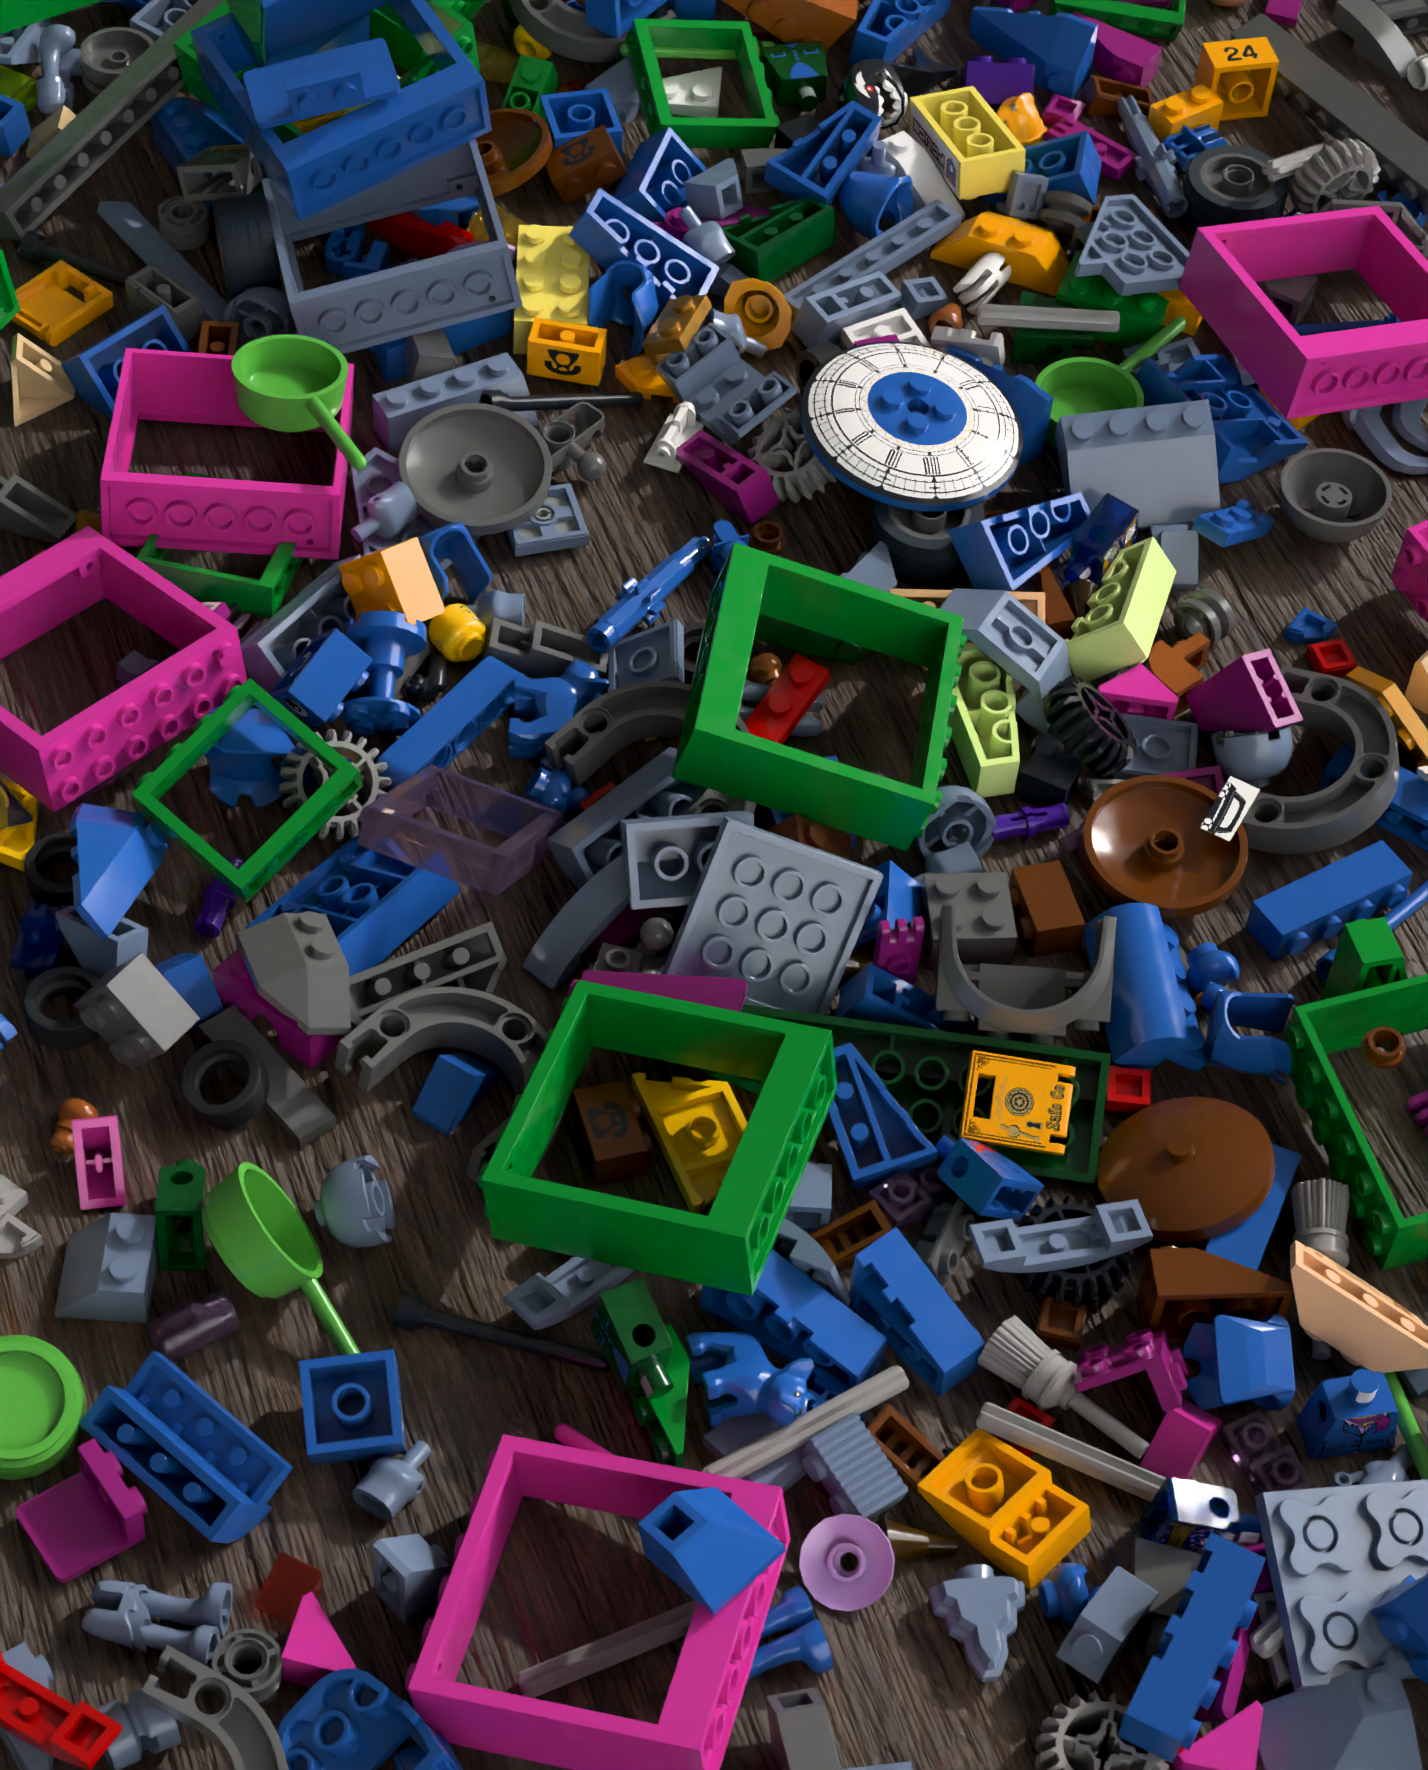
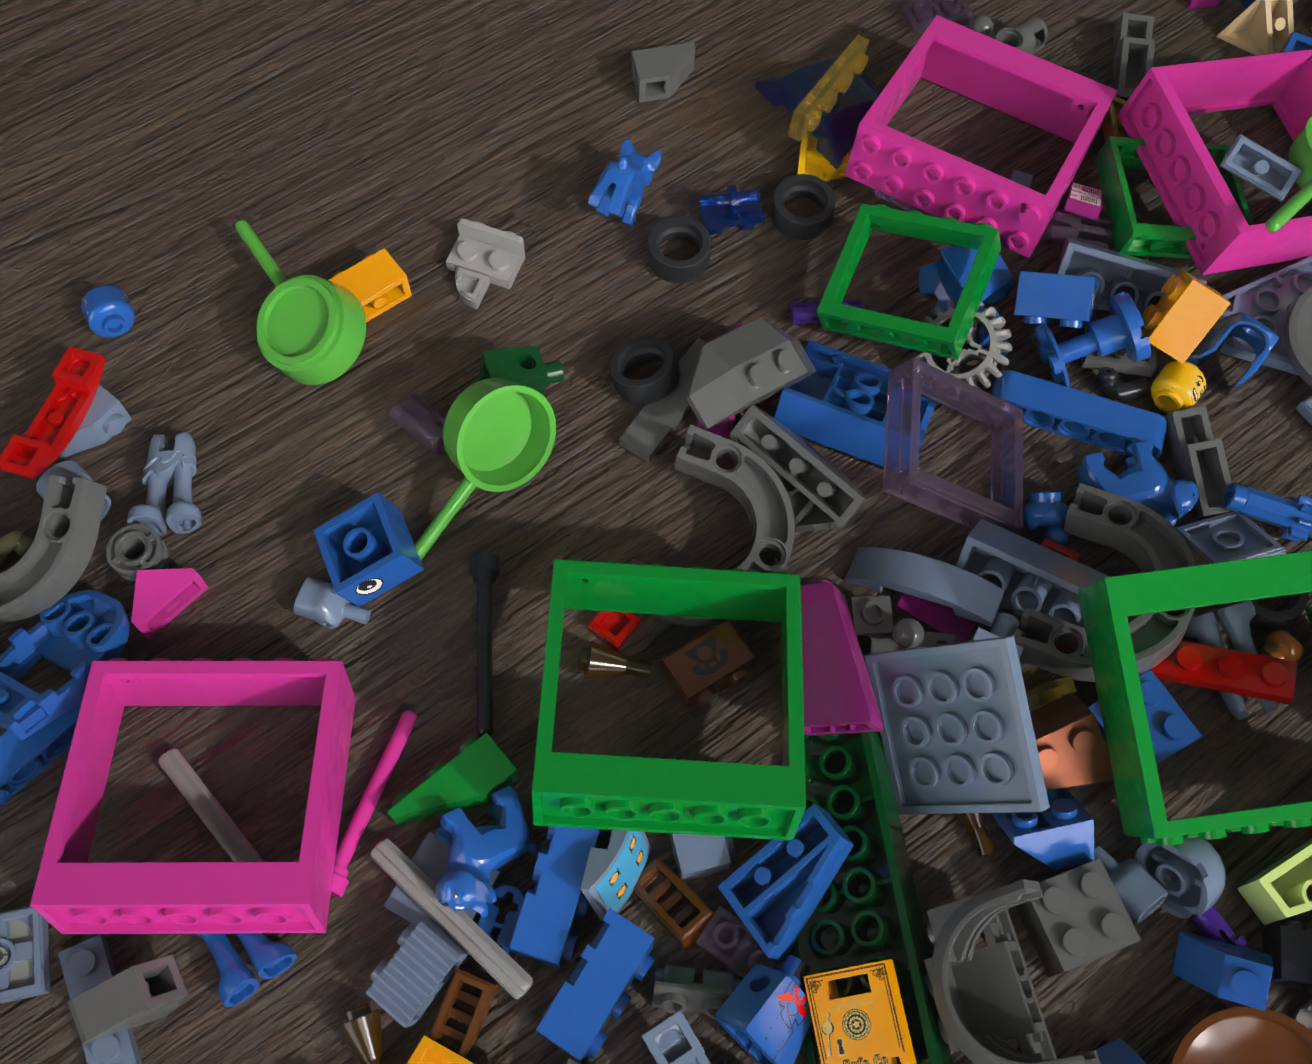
camera: 75 degrees right, 15 degrees up
(69, 1110) = (577, 289): dark orange piece -> none
(84, 1516) = (244, 407): magenta bracket -> none
(97, 955) = (741, 248): sand blue slope -> none
(98, 1162) = (545, 315): dark pink slope -> none
(110, 1270) = (453, 357): sand blue slope -> none
(115, 861) = (799, 218): blue wedge -> none
(136, 1011) = (670, 283): brick -> none
(188, 1450) = (302, 451): blue brick -> none
(193, 983) = (727, 309): blue slope -> none
(266, 449) = (1260, 167): none -> sand blue slope
(287, 1585) = (219, 563): clear red slope -> none
(356, 1204) = (564, 497): sand blue cylinder -> none
(387, 513) = (1270, 291): sand blue piece -> none
(408, 1573) = (231, 634): sand blue slope -> none
(452, 1091) = (712, 534): blue slope -> none
(500, 605) = (1225, 413): sand blue piece -> none
(564, 1291) = (576, 697): sand blue slope -> none
(634, 1337) = (474, 726): dark green torso -> none
(668, 855) = (985, 605): sand blue slope -> none
(696, 1130) = (739, 730): yellow wing -> none
(707, 1545) = (220, 854): blue slope -> none
(823, 1566) = (327, 991): lavender dish -> none
(887, 999) = (935, 865): blue slope -> none
(899, 949) = (981, 858): magenta hinge -> none
(1045, 909) = (1128, 993): reddish brown brick -> none
(1048, 825) = (1224, 969): none -> blue slope

